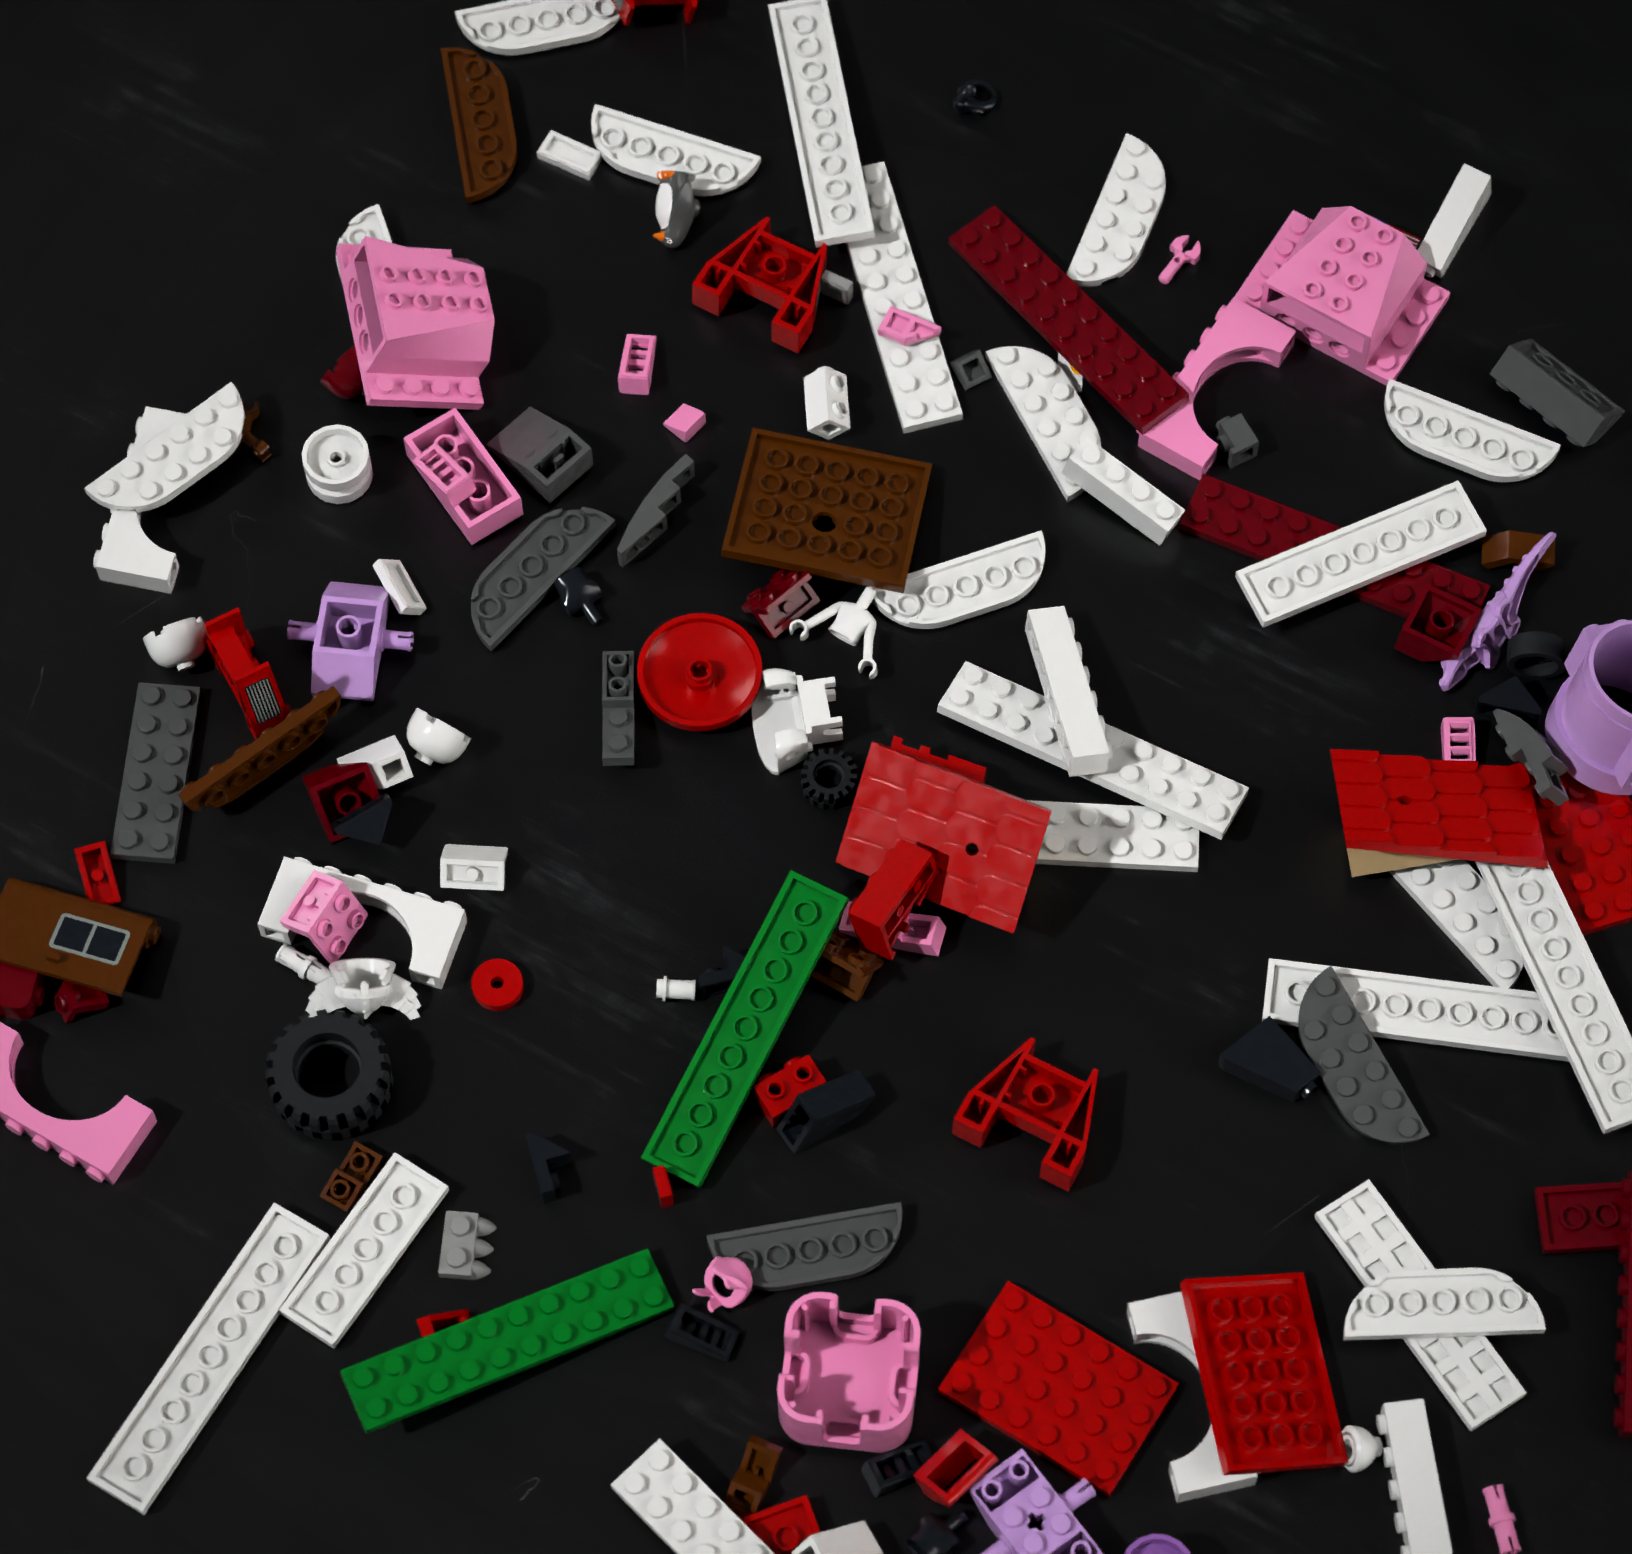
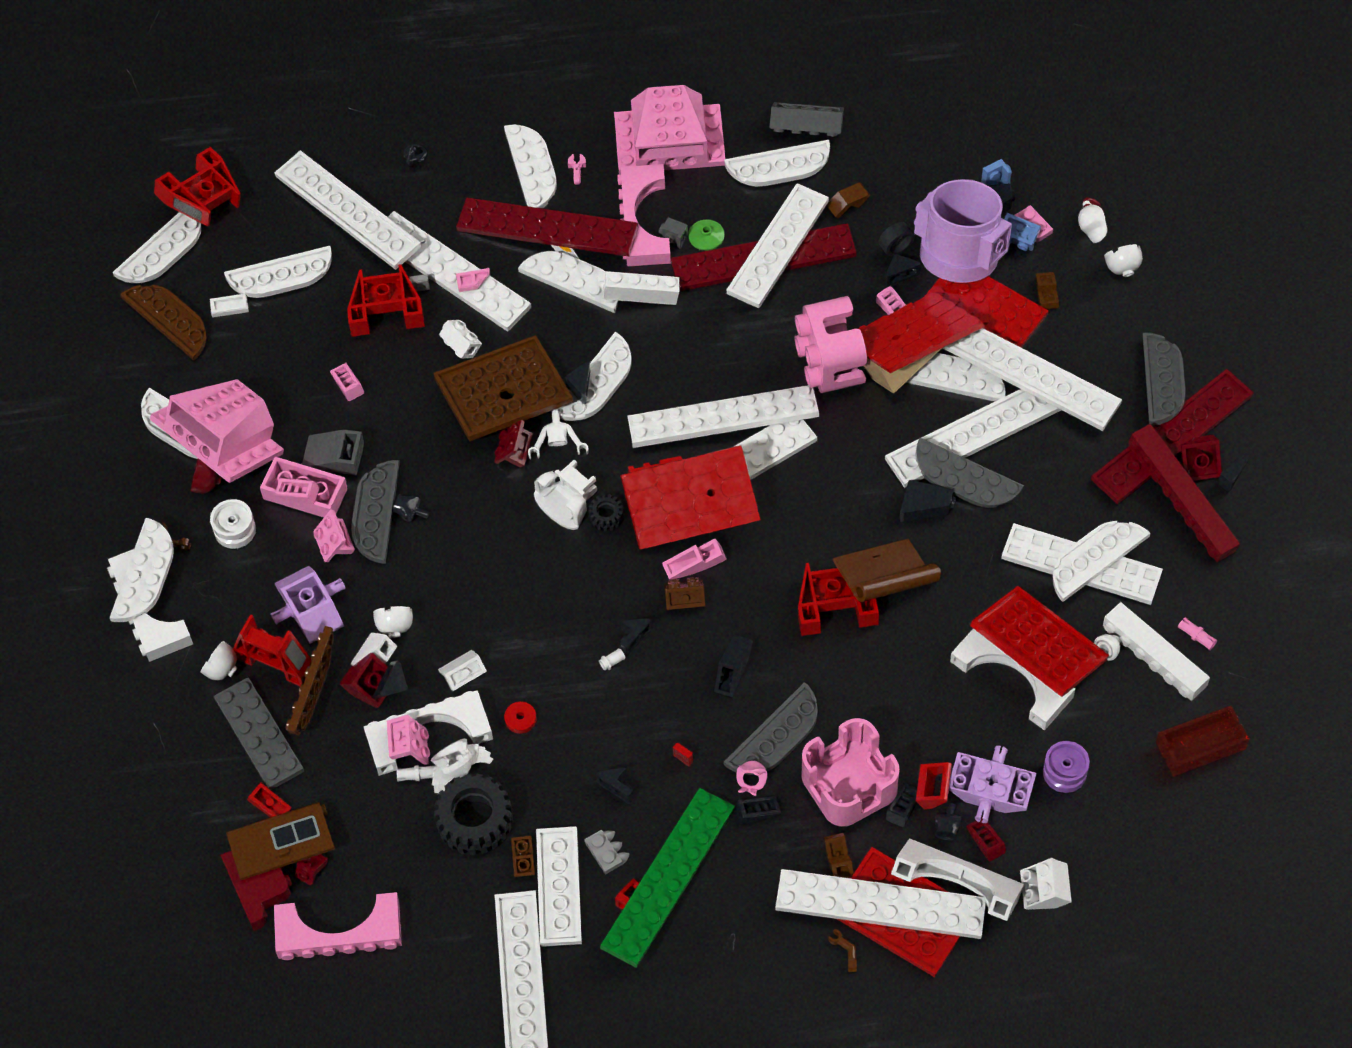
camera: 35 degrees left, 5 degrees down
(400, 587) = (314, 562): white tile -> none
(451, 569) = (333, 537): none -> bright pink bracket
(618, 708) = (473, 547): dark grey slope -> none
(650, 517) = (415, 445): dark grey slope -> none
(675, 206) = (306, 294): dark grey animal -> none
(685, 422) = (394, 393): bright pink slope -> none
(699, 672) = (502, 503): red dish -> none
(745, 1029) = (666, 651): green plate -> none
(778, 1091) = (705, 670): red brick -> none
(890, 896) = (688, 541): red wedge -> none
(934, 570) = (578, 381): none -> black slope
(971, 369) = (516, 280): dark grey slope -> none
(1058, 1388) = (947, 716): red plate -> none
(1068, 691) = (691, 395): white brick -> none
(1132, 1123) = (885, 570): none -> reddish brown door
(1280, 483) = (706, 240): none -> bright green dish
(1298, 756) = (829, 348): none -> bright pink piece
(1437, 626) = (840, 255): dark red slope -> none
(1455, 219) = (696, 66): white slope -> none
(1496, 621) = (864, 238): lavender animal -> none
(1535, 753) = (931, 281): dark grey slope -> none

